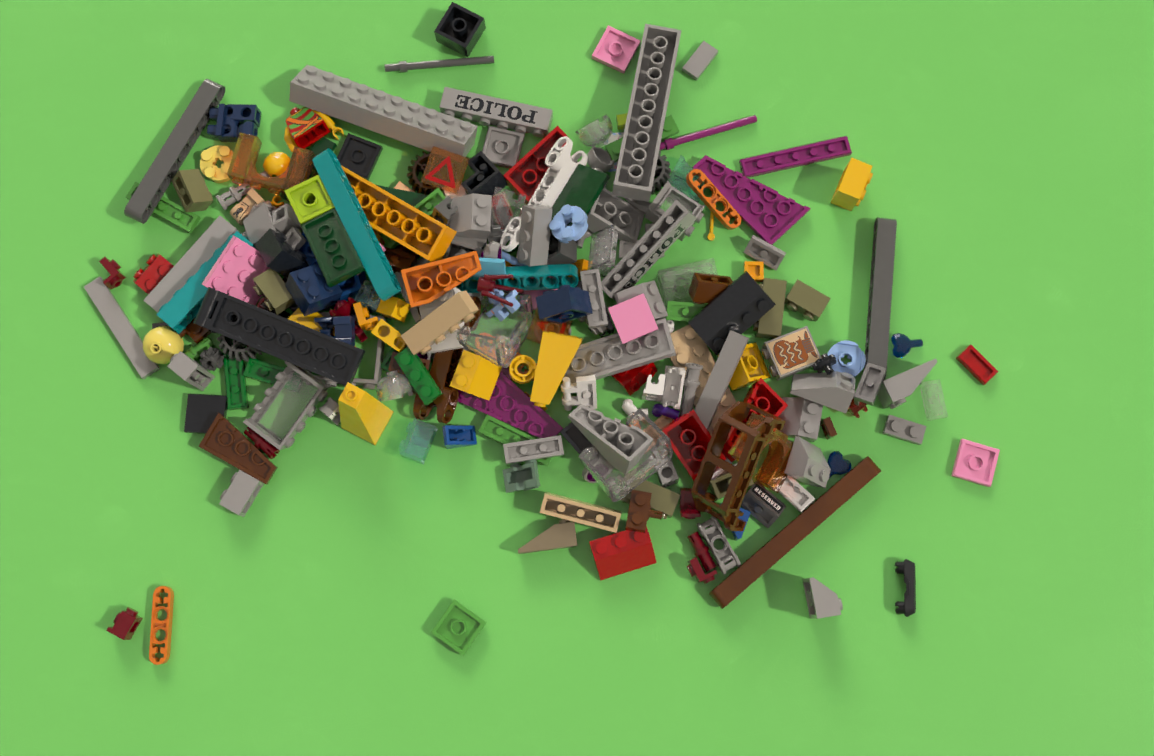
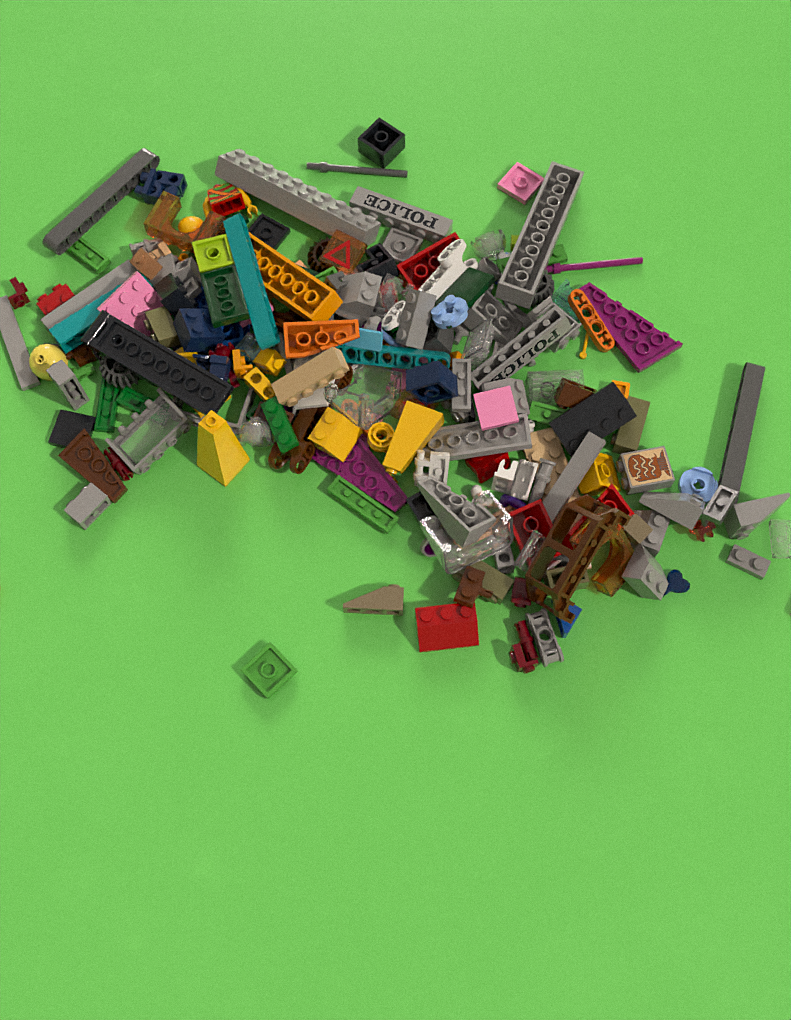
camera: 10 degrees right, 10 degrees down
(192, 190) = (109, 235): olive brick -> none
(210, 157) = (129, 218): light yellow plate -> none
(212, 358) = (90, 381): dark grey gear -> none
(239, 218) = (145, 263): none -> medium nougat slope
(331, 410) = (189, 445): light grey leg -> none
(417, 441) = (267, 488): clear light blue brick -> none
(459, 436) = (307, 490): blue slope -> none
(487, 285) = (362, 354): dark red plant -> none
(499, 308) = (371, 373): light blue hips -> none
(521, 477) = (360, 538): sand green cylinder -> none
(533, 449) = (376, 513): light grey plate -> none
(580, 512) = (412, 579): tan brick -> none
(692, 466) = (529, 551): none -> clear plate
(700, 60) = (597, 204): light grey tile -> none
(763, 504) = (594, 607): flat silver panel -> none
(764, 252) = (632, 374): light grey plate -> none
(794, 424) = (637, 529): none -> dark tan brick
(794, 532) = (622, 639): reddish brown beam -> none
(795, 157) = (675, 299): magenta tile -> none
(796, 494) = (630, 602): white plate -> none
(806, 301) = (667, 425): olive brick -> none
(821, 600) = (641, 707): light grey slope -> none
(825, 364) = (677, 482): black plant -> none
(828, 428) = (671, 545): reddish brown tile -> none
(852, 184) = (726, 328): yellow brick -> none
(903, 344) = (757, 482): rock -> none
(907, 607) = (730, 733): black piece -> none

